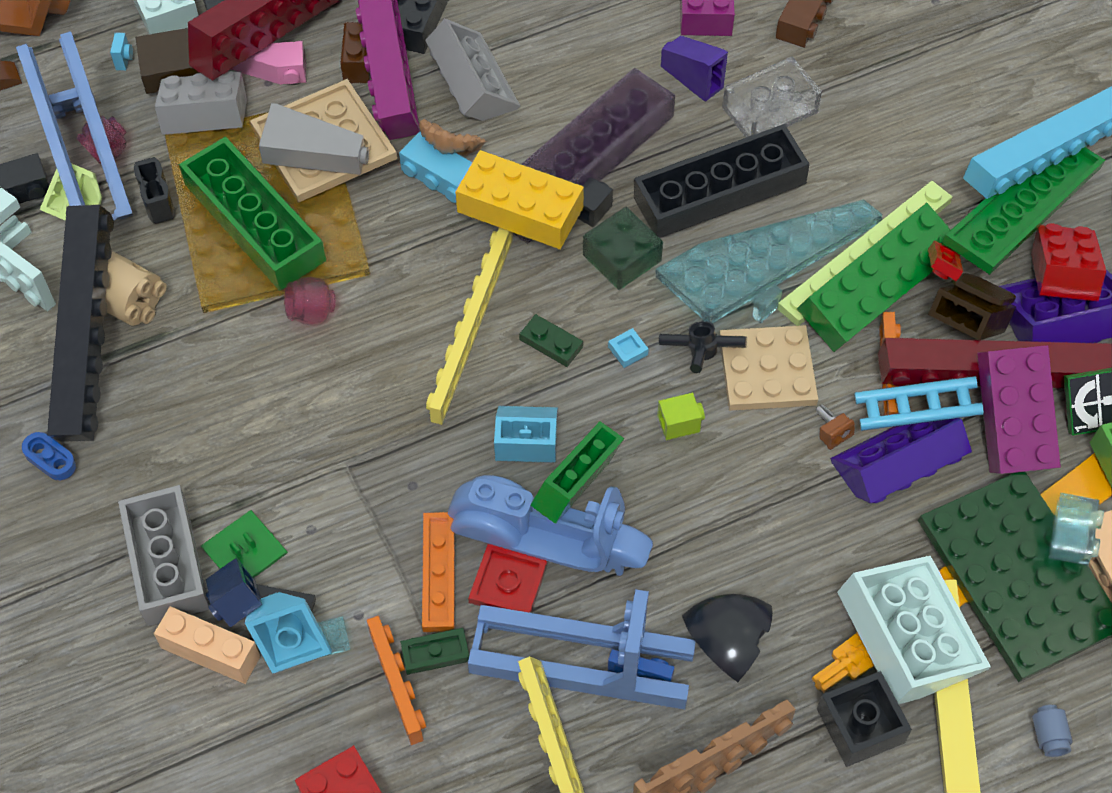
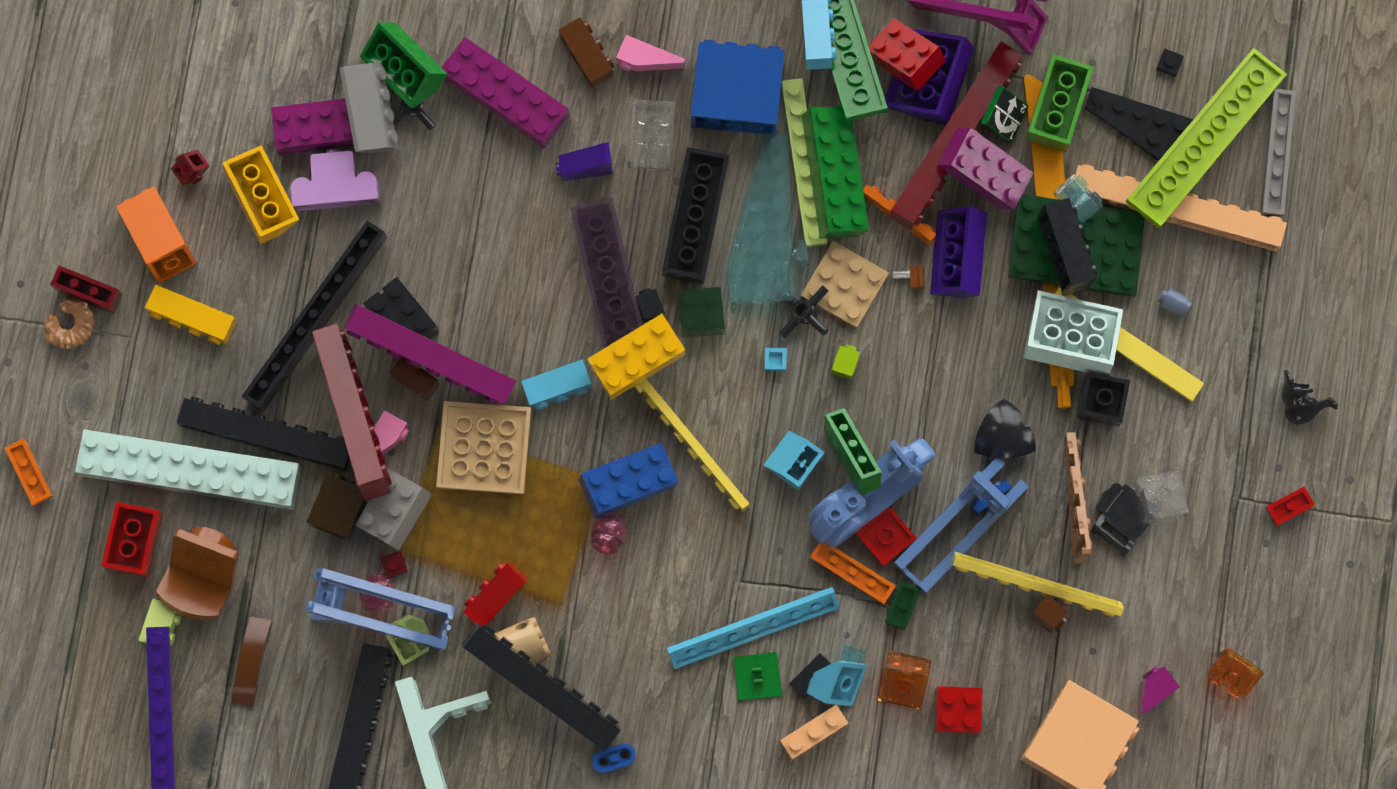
camera: 55 degrees left, 20 degrees up
(121, 51) = (298, 536): medium azure plate -> none
(147, 144) = (394, 564): none -> dark red plate
(154, 190) = (454, 583): black brick -> none
(163, 554) = (737, 725): light grey brick -> none
(167, 236) = (495, 593): none -> red brick
(232, 593) = (795, 699): dark blue brick -> none
(253, 213) = (520, 530): green brick -> none
(299, 507) = (753, 628): none -> medium azure plate
(310, 143) = (489, 462): light grey slope -> none
(342, 708) = (904, 679): none -> clear orange slope
(381, 282) = (628, 480): none -> blue brick
(401, 691) = (916, 640): orange plate -> none
(450, 143) = (552, 361): medium nougat piece -> none
(471, 71) = (485, 311): light grey slope -> none
(551, 340) = (735, 401): dark green plate -> none
(846, 56) = (642, 56): none -> bright pink slope
(887, 139) = (737, 87): none -> blue brick
(931, 391) = (953, 216): medium azure bar -> none
(945, 261) = (863, 133): red plate -> none
(974, 307) = (899, 137): dark brown brick -> none
(1009, 545) = (1067, 246): none -> black brick

